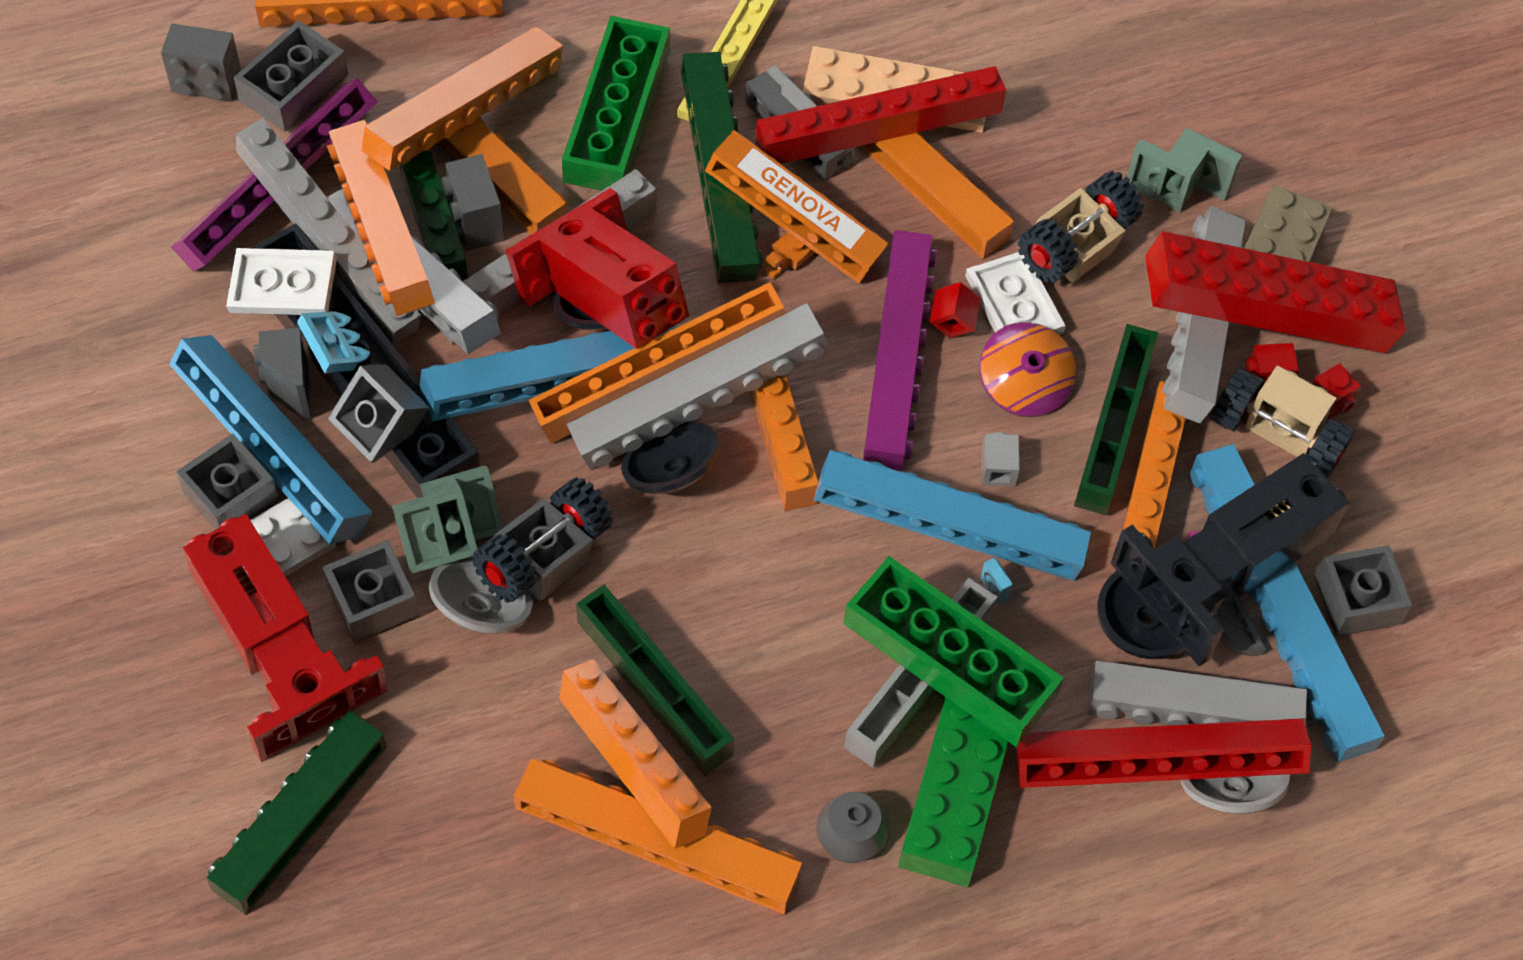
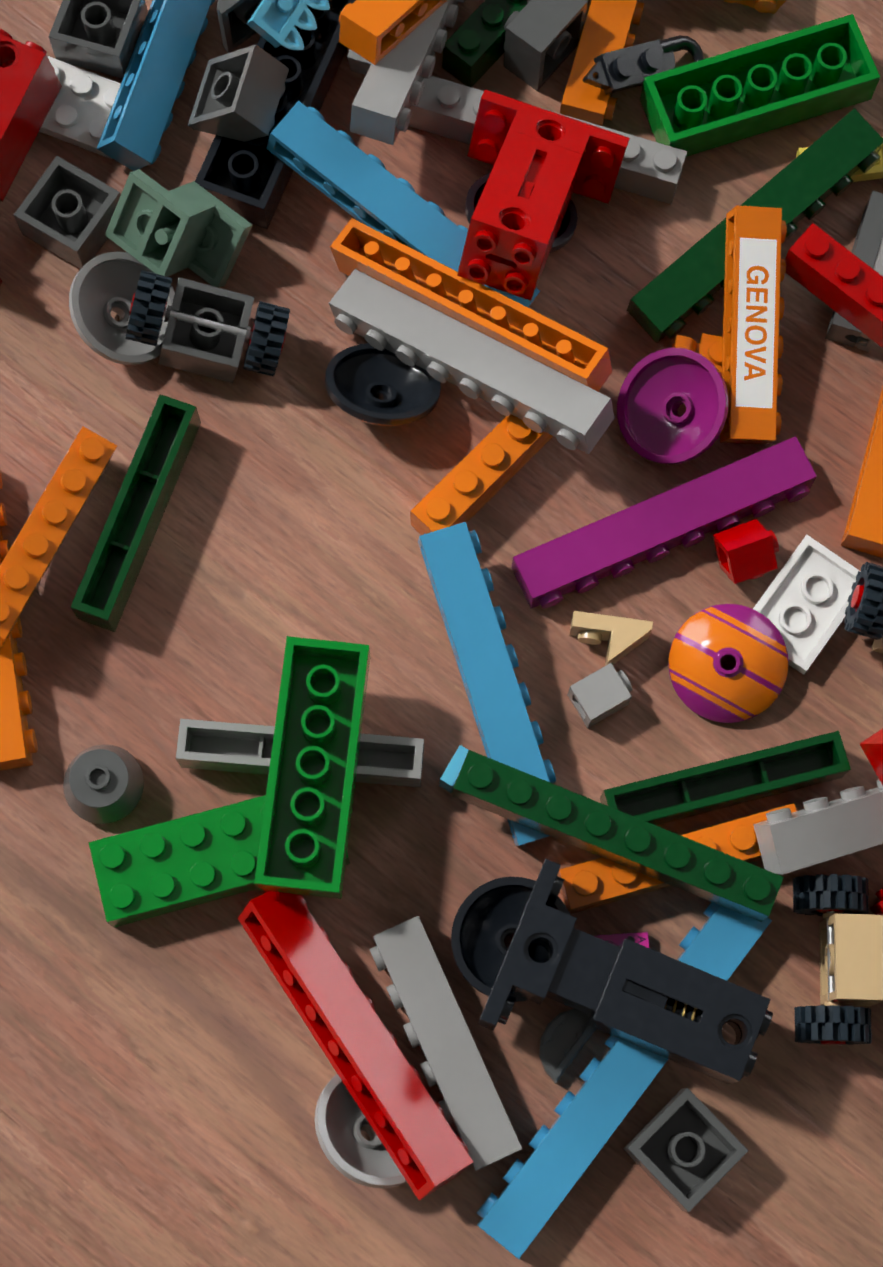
camera: 60 degrees right, 15 degrees up
(544, 159) = (629, 66): none -> black plate
(824, 265) = (651, 403): none -> magenta dish
(961, 424) = (620, 632): none -> tan slope
(1121, 492) = (617, 836): none -> dark green brick

